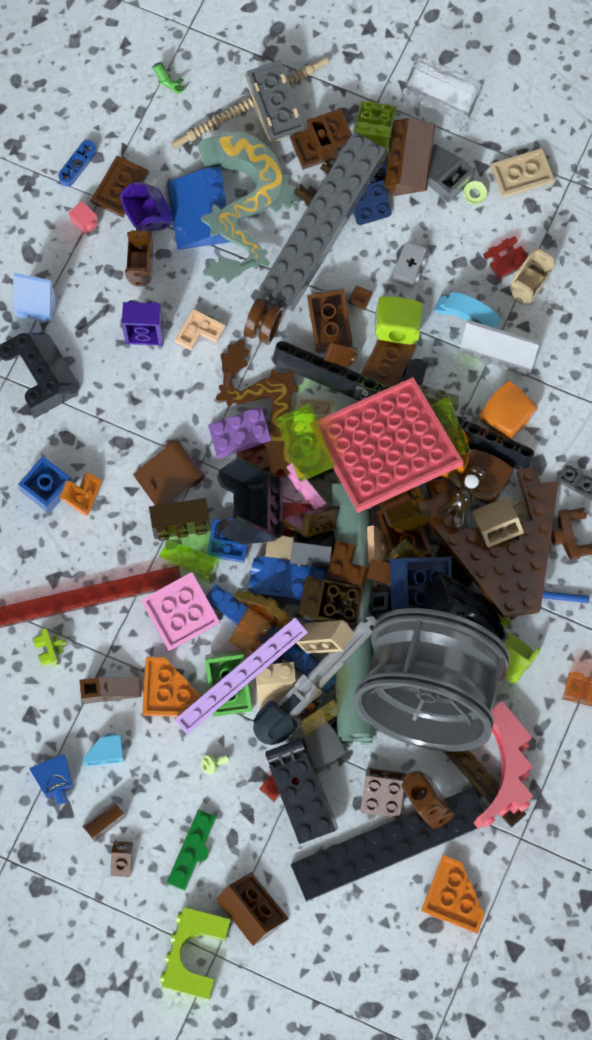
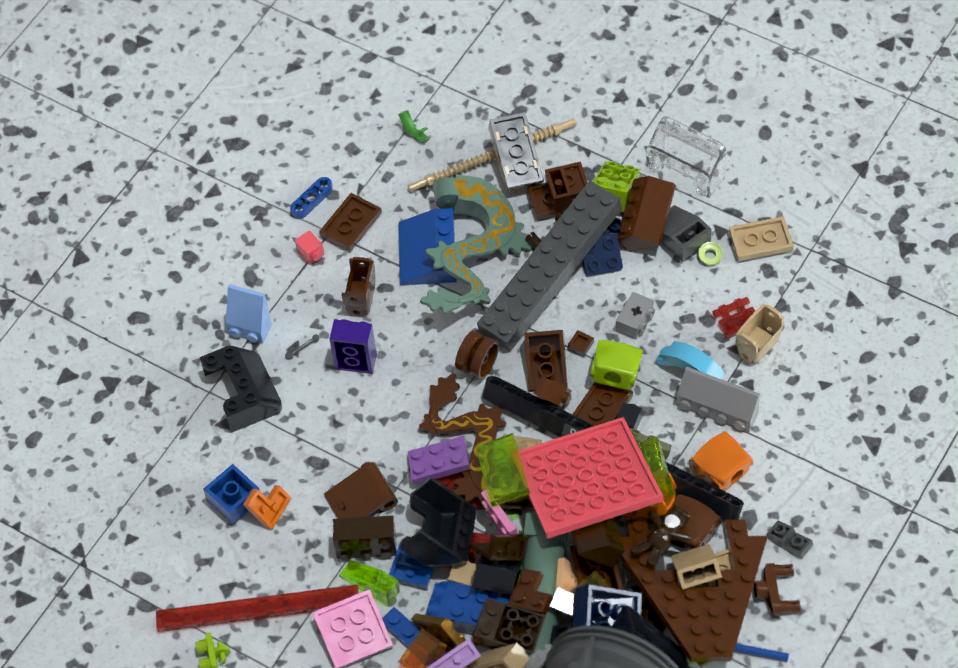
camera: 10 degrees right, 15 degrees down
(146, 207) = (373, 243): dark purple piece -> none
(199, 325) = (409, 356): light nougat plate -> none

